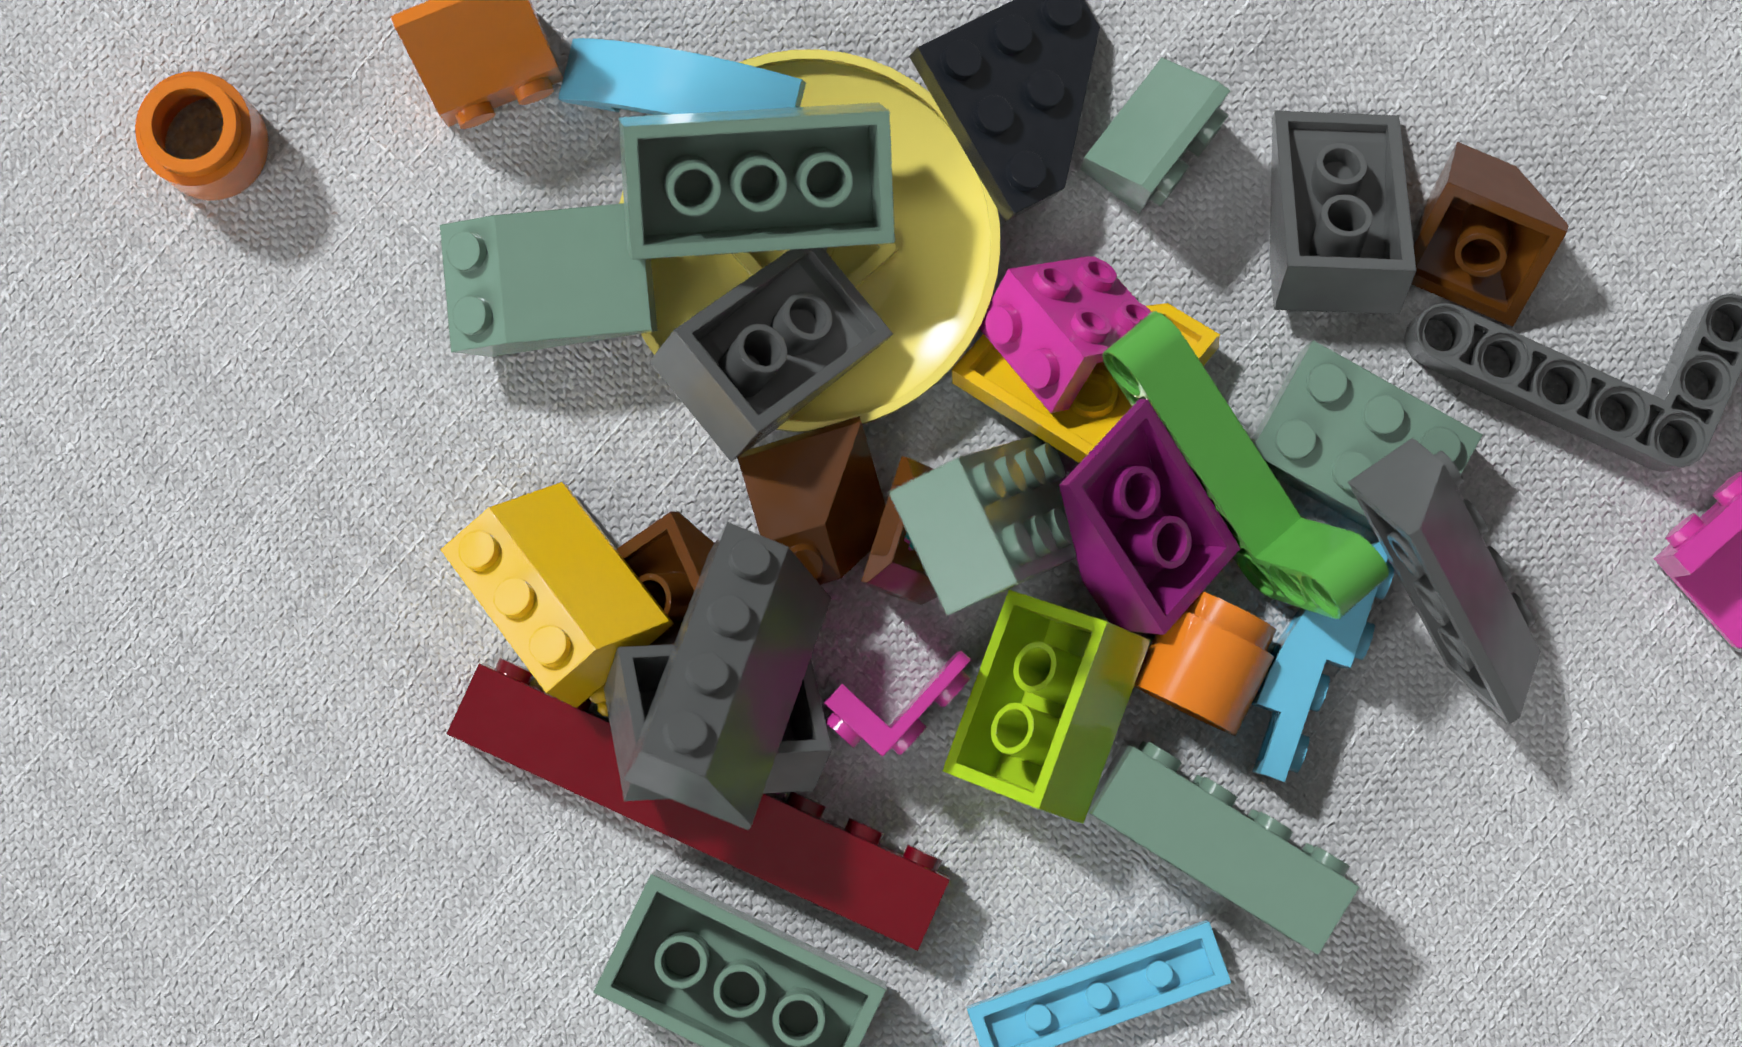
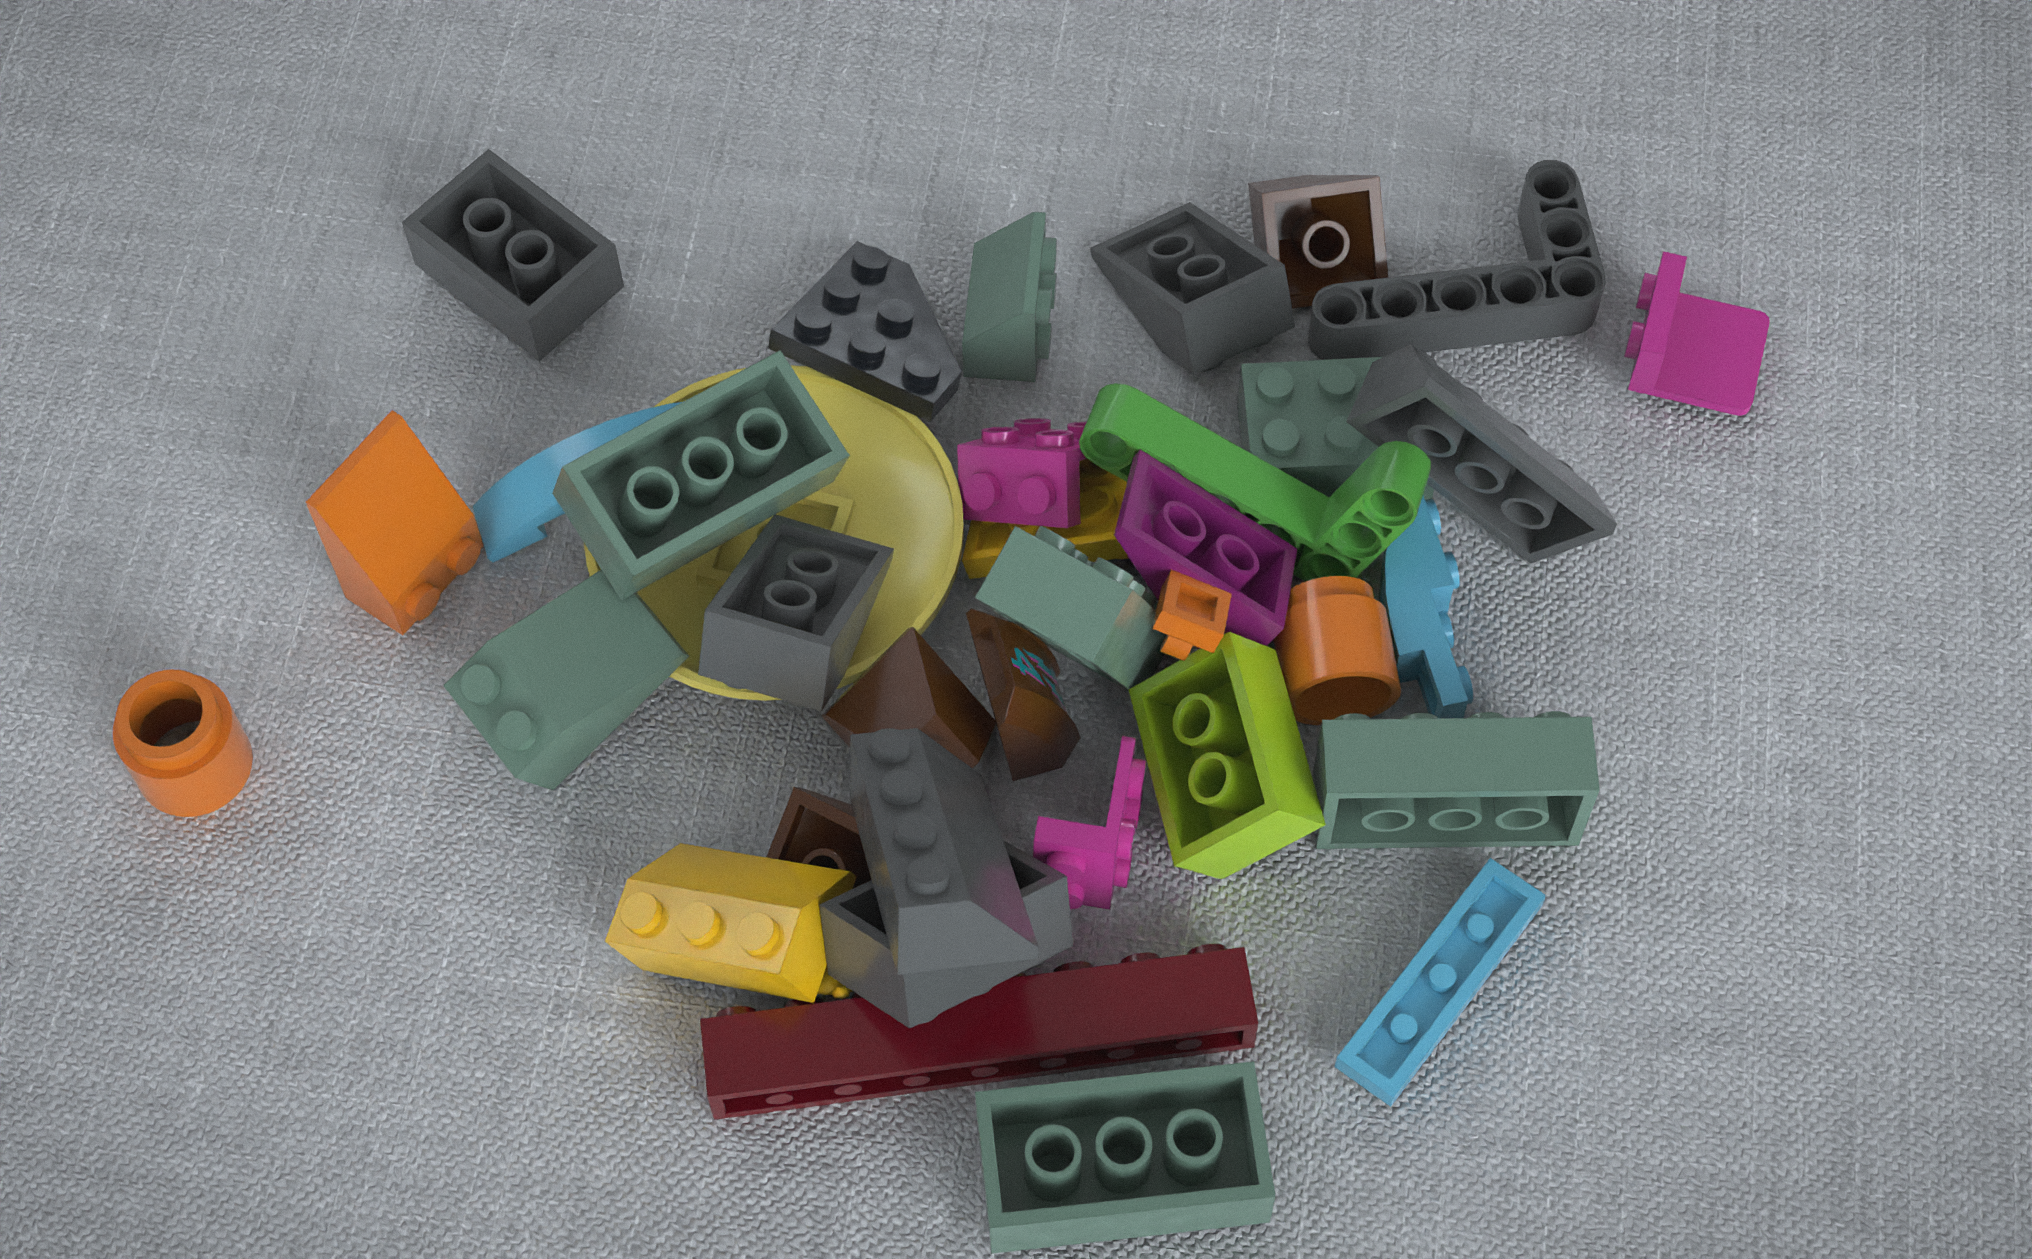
camera: 30 degrees left, 25 degrees down
(1086, 585) = (1190, 615): none -> orange tile

